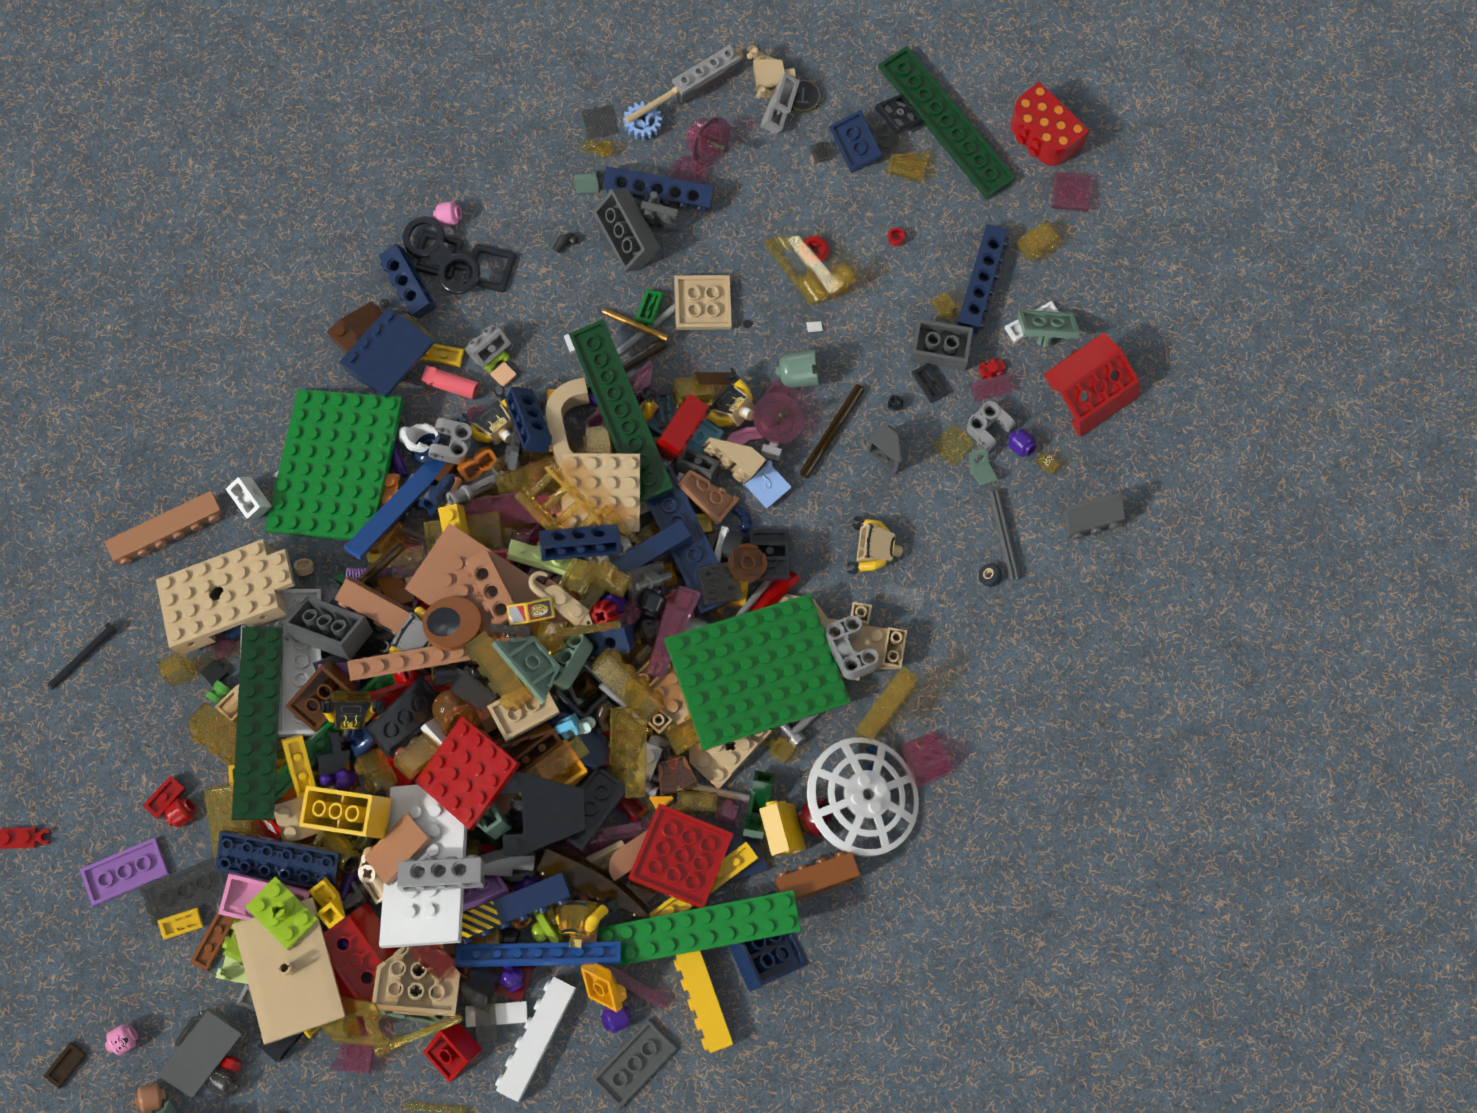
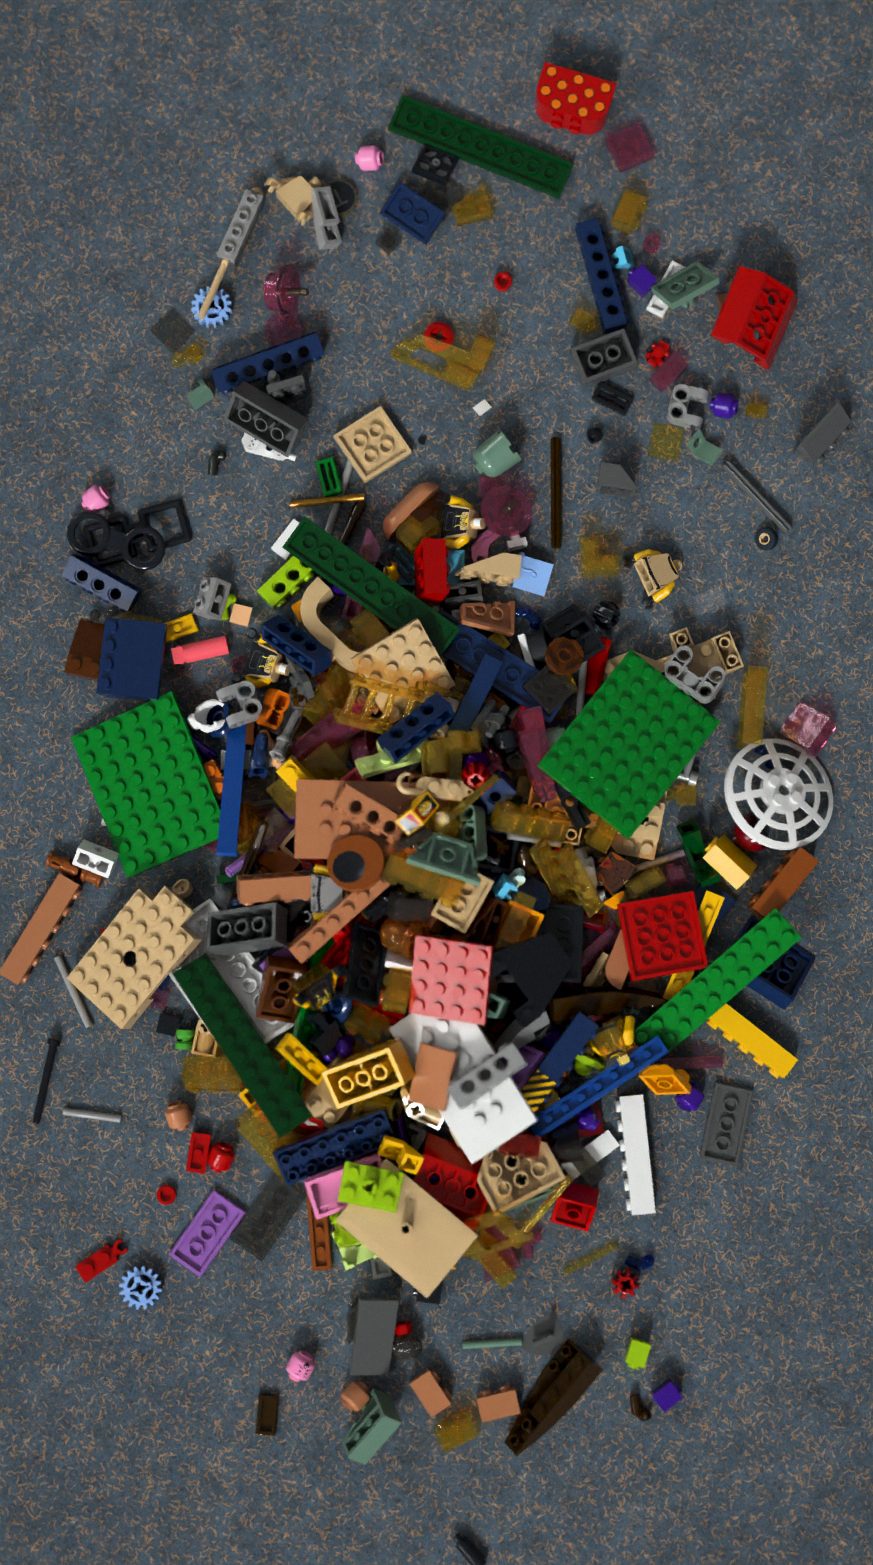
camera: 30 degrees left, 10 degrees up
(32, 894) = (138, 1278): none -> light blue gear
(99, 709) = (92, 1115): none -> light grey bar
(113, 816) = (166, 1194): none -> red tile
(155, 599) = (73, 992): none -> light grey piece
(169, 754) = (178, 1115): none -> nougat head
(176, 669) = (137, 1042): clear yellow brick -> none
(180, 923) = (283, 1244): yellow plate -> none
(219, 487) = (66, 867): none -> dark orange piece
(348, 1063) = (498, 1269): none -> clear yellow tile
(393, 1057) = (527, 1246): none -> clear pink arm
(557, 364) = (281, 577): none -> lime brick
(608, 253) = (260, 449): none -> white piece
(673, 702) = (576, 812): none -> black piece
(711, 364) = (407, 505): none -> nougat brick
(809, 555) = (606, 615): none -> black piece
(825, 505) = (592, 563): none -> clear yellow brick
(848, 79) = (369, 158): none -> bright pink head
(1011, 276) = (625, 258): none -> medium azure tile
(1014, 300) = (641, 280): none -> dark purple brick
(1047, 277) = (654, 239): none -> clear pink bush

